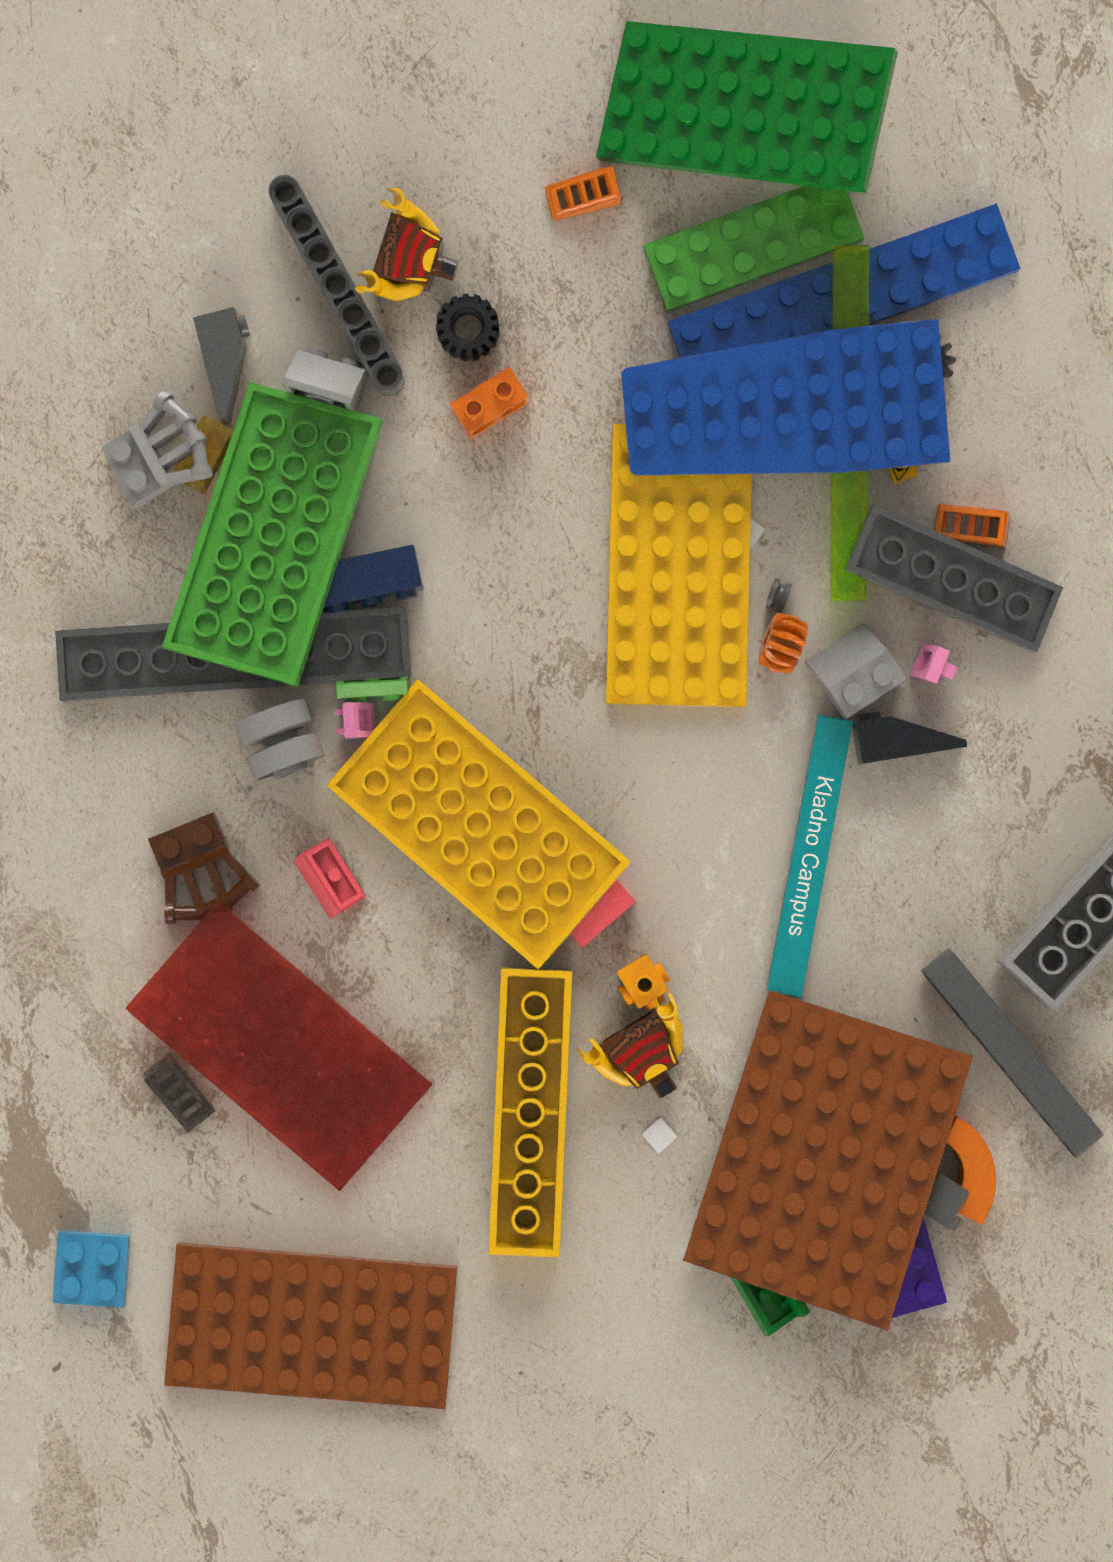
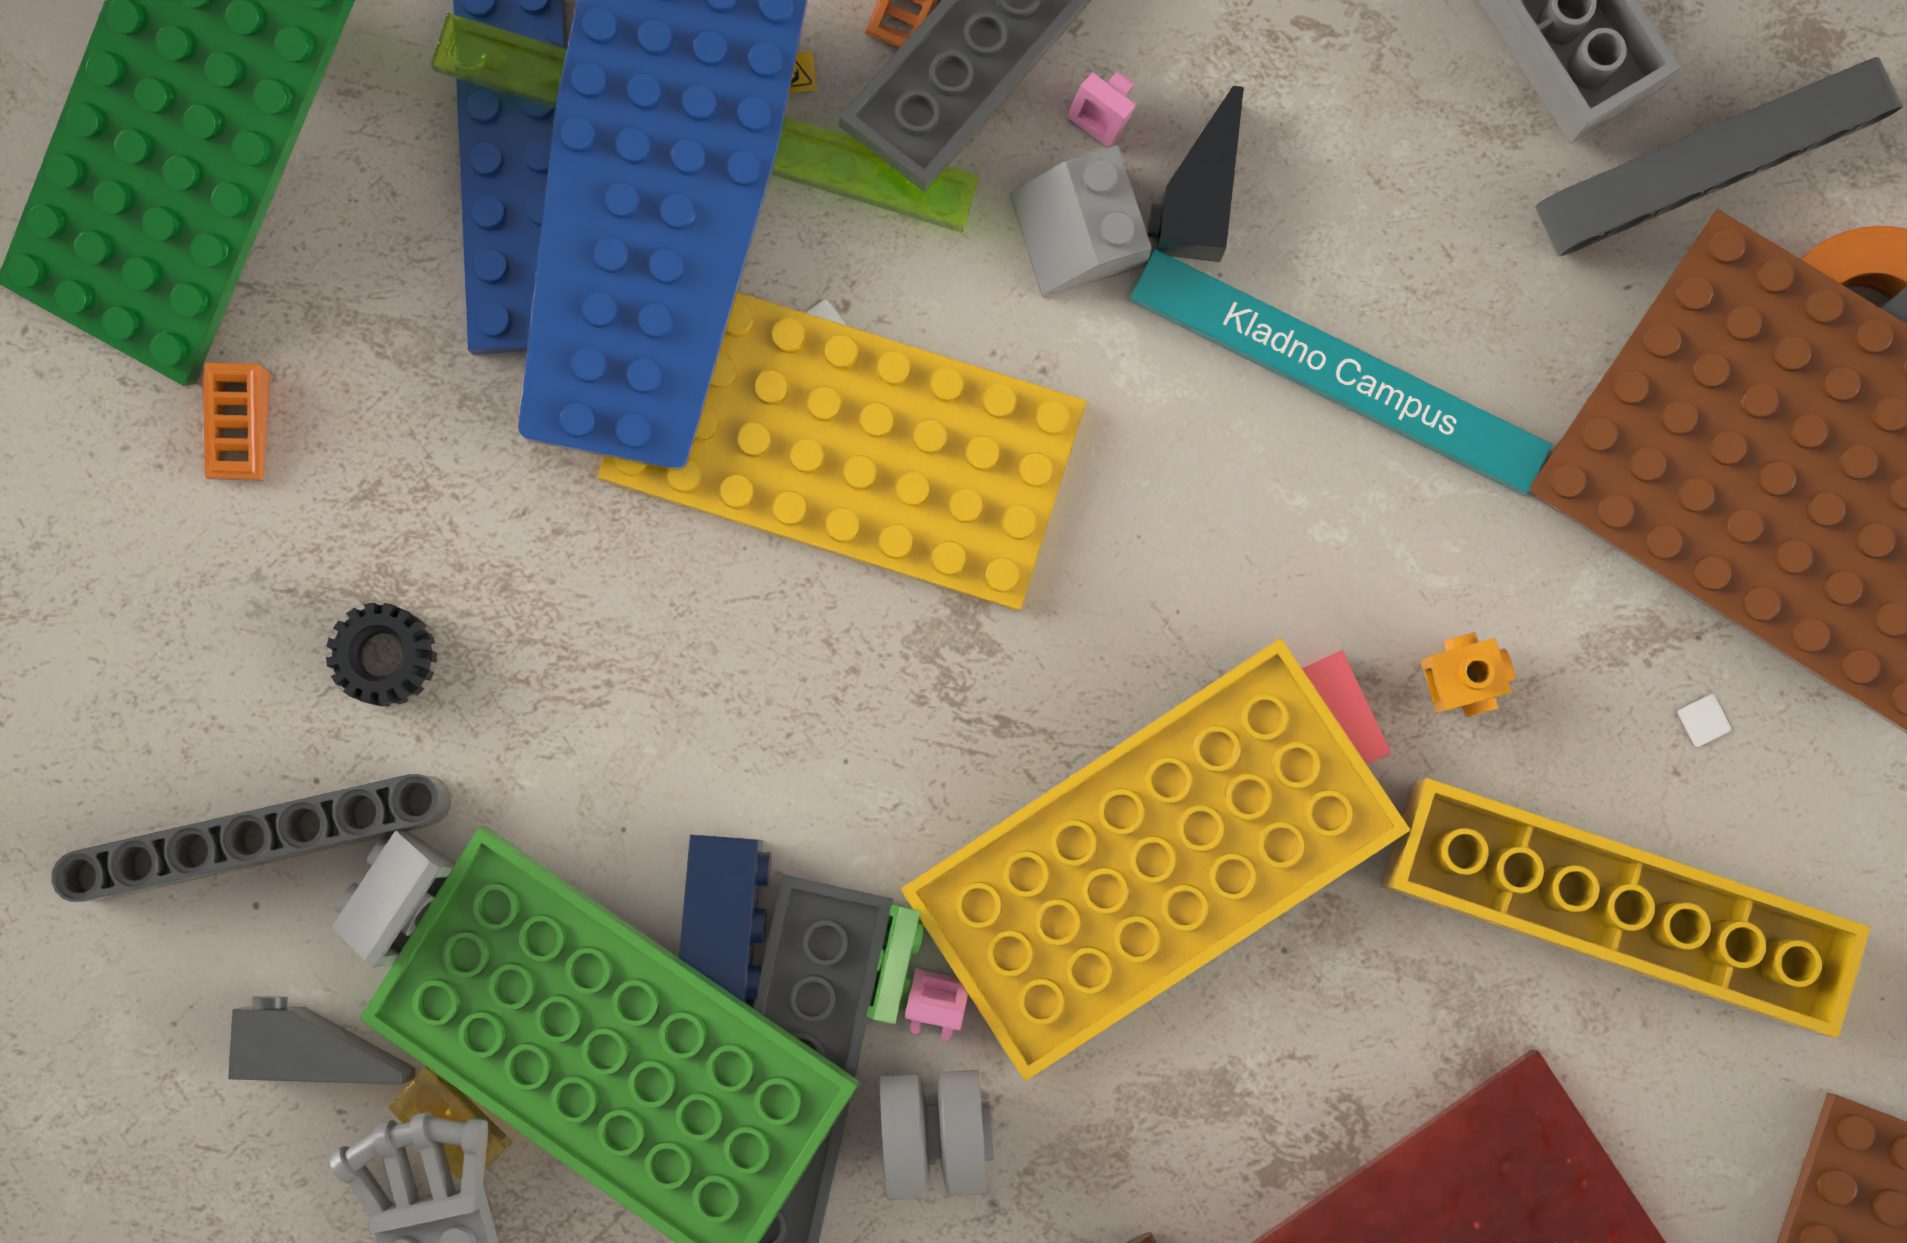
camera: 75 degrees left, 5 degrees down
(329, 878) = (1169, 1118): coral slope -> none
(407, 254) = (238, 713): torso -> none
(489, 403) = (507, 653): orange brick -> none
(642, 1050) = (1571, 708): torso -> none
(751, 244) = (390, 194): bright green plate -> none
(778, 595) = (933, 304): dark grey bush -> none
(783, 643) = (1008, 315): orange gear -> none

